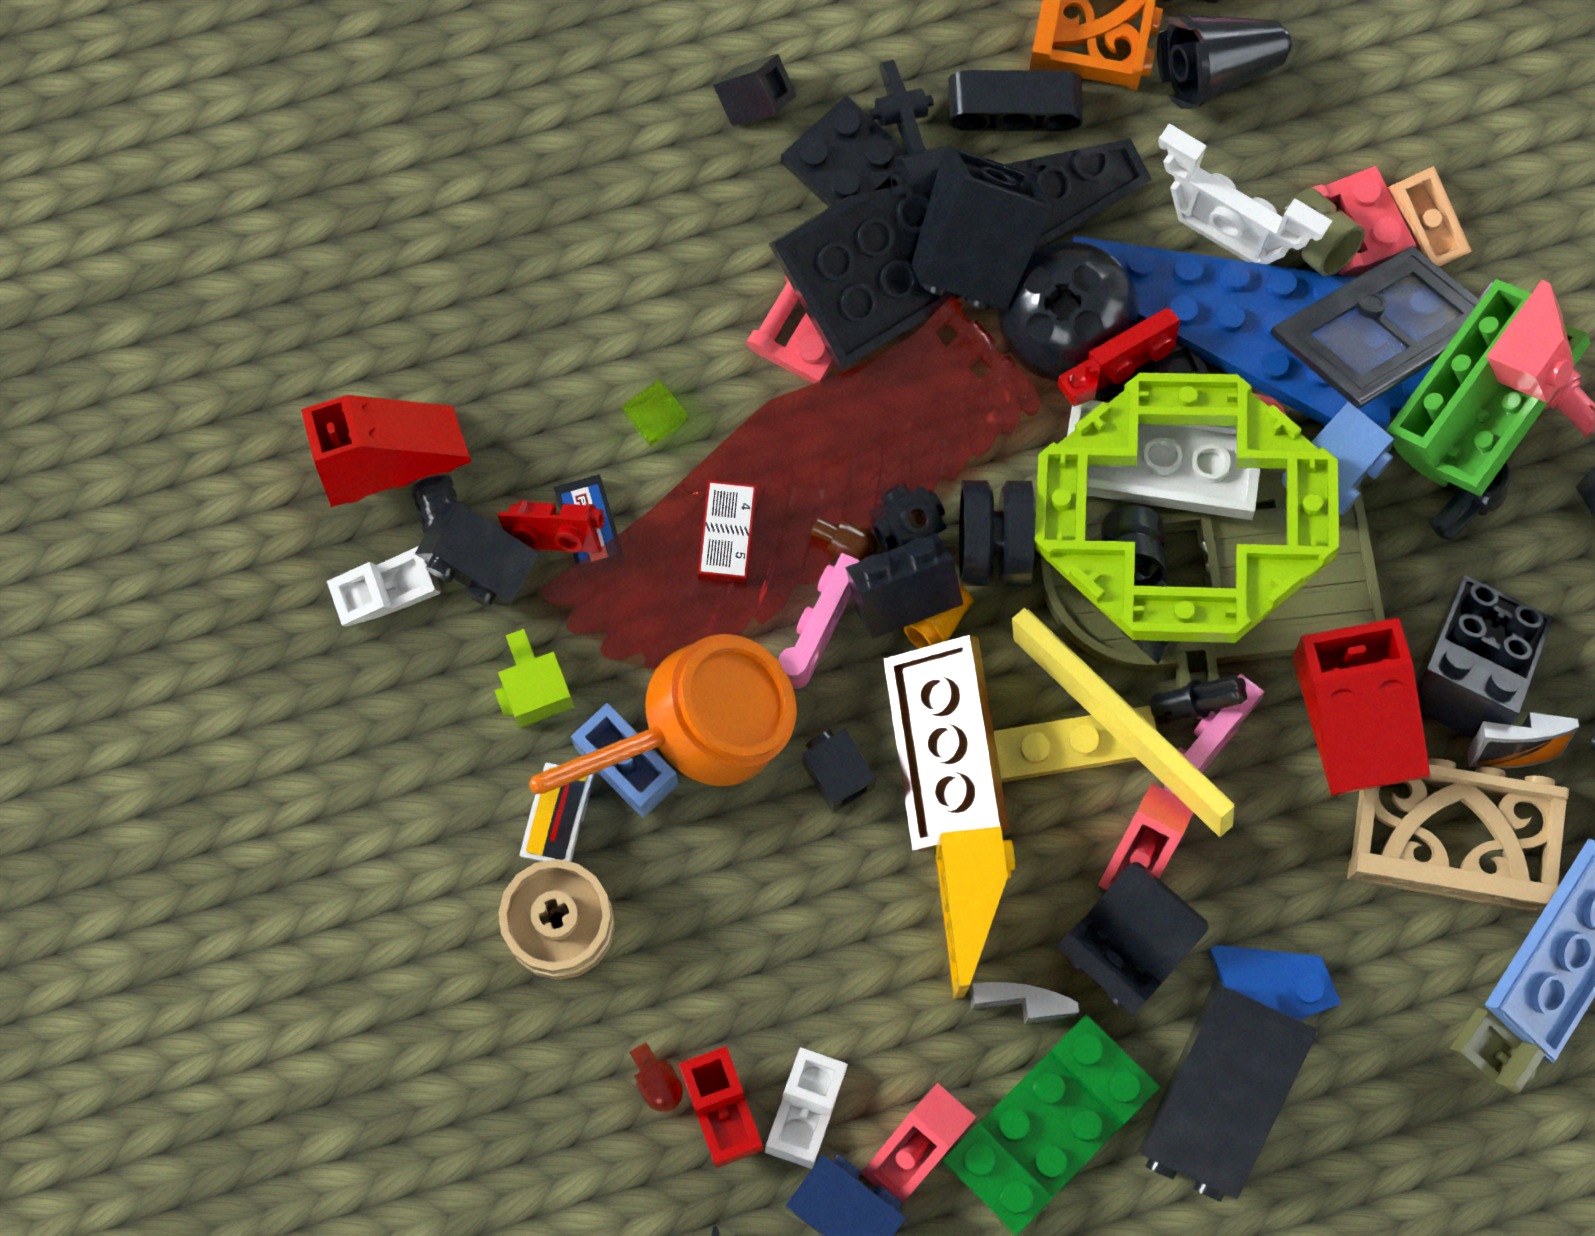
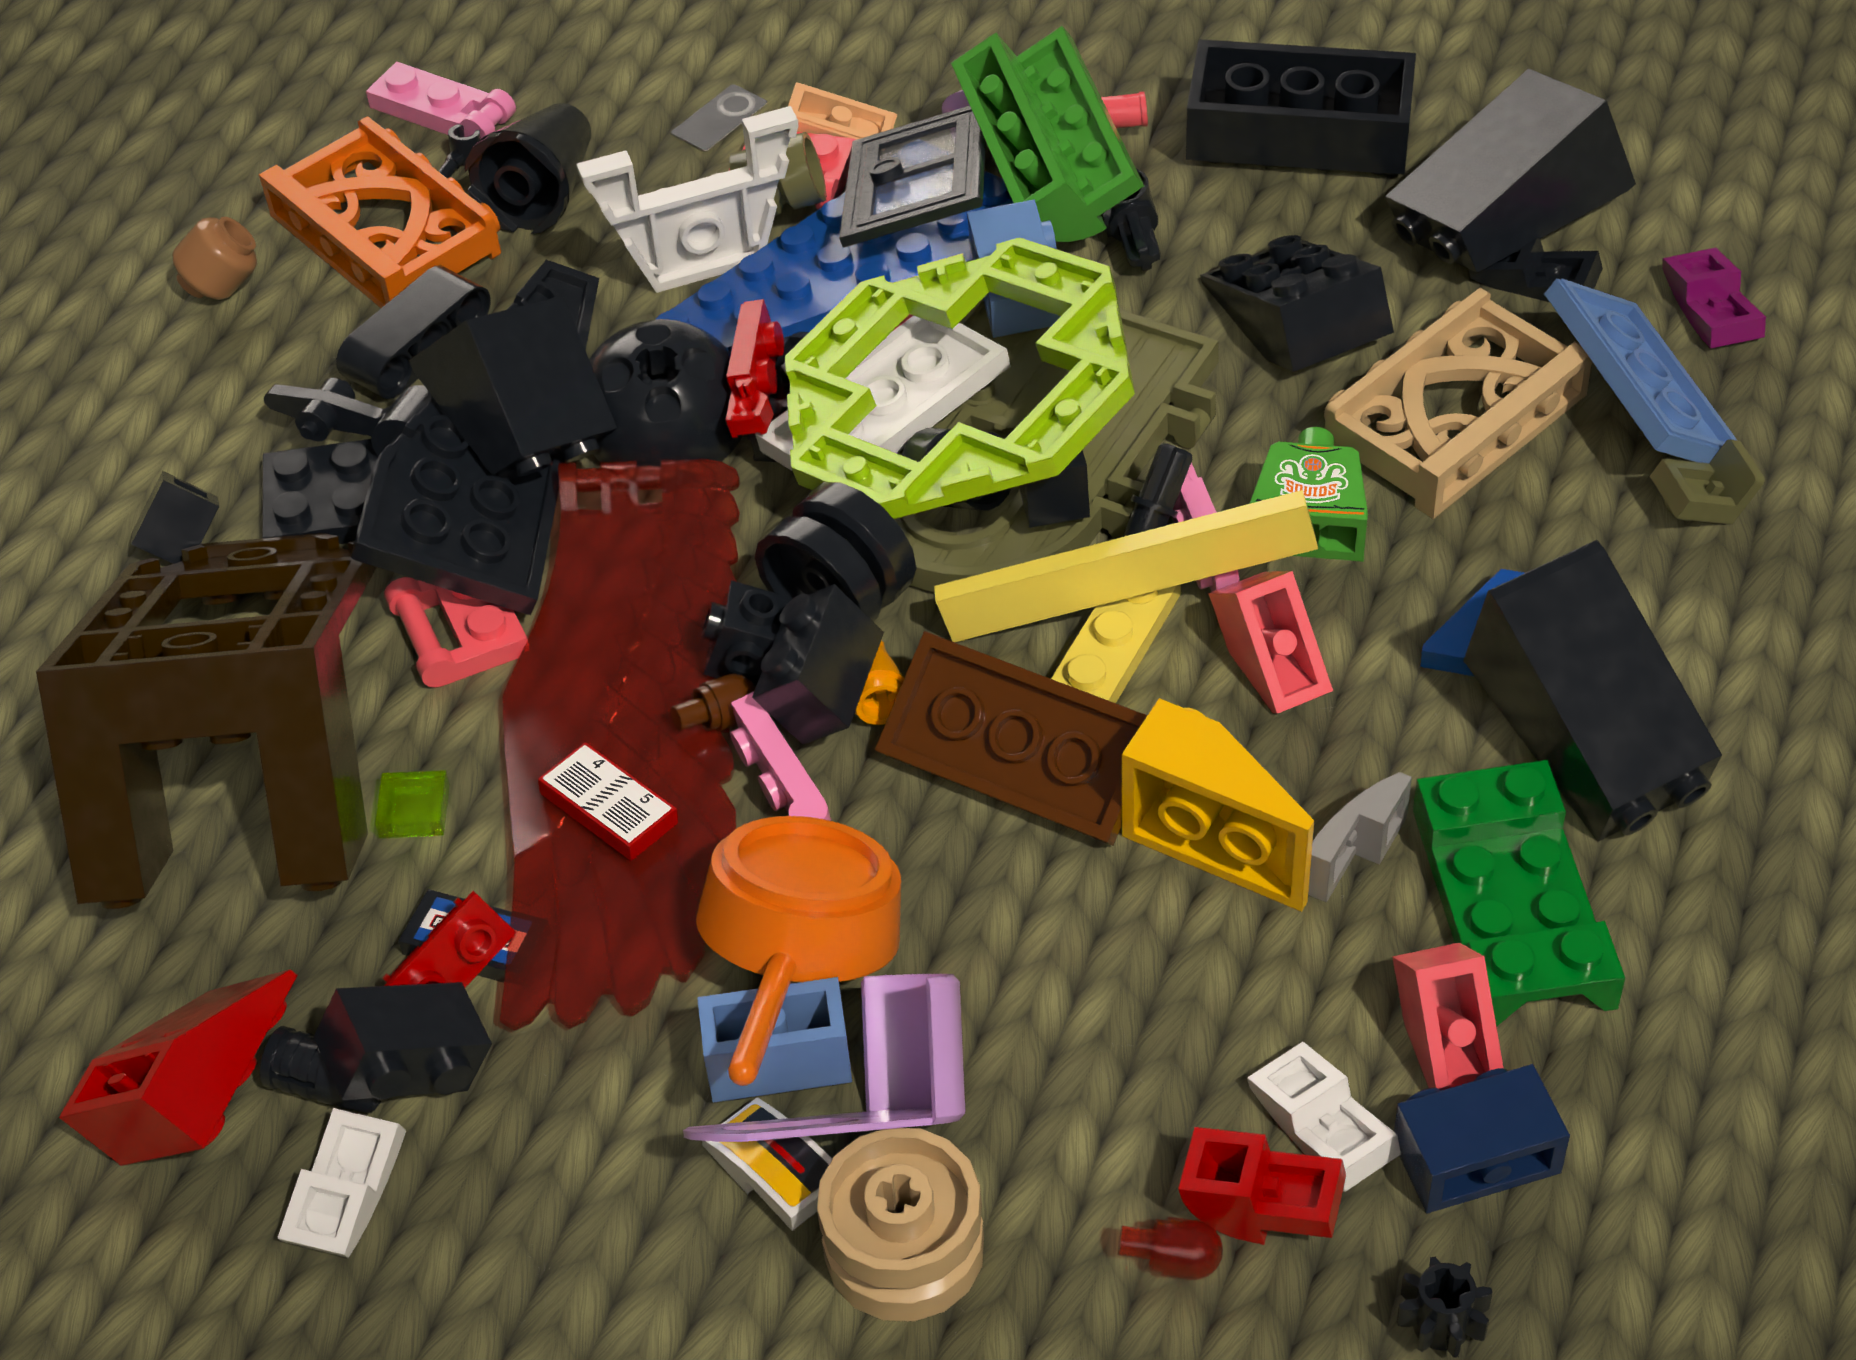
camera: 50 degrees left, 25 degrees down
(533, 686) = (601, 1092): lime brick -> none
(557, 240) = (141, 687): none -> dark brown bracket
(628, 870) = (908, 1062): none -> lavender piece
(837, 769) = (959, 855): black brick -> none
(1133, 937) = (1361, 689): black bracket -> none
(1285, 793) = (1331, 488): none -> bright green torso
(1363, 705) = (1272, 368): red slope -> none
(1378, 130) = (719, 117): none -> sticker
(1510, 746) = (1404, 303): slope -> none
(1534, 348) = (1046, 58): coral slope -> none

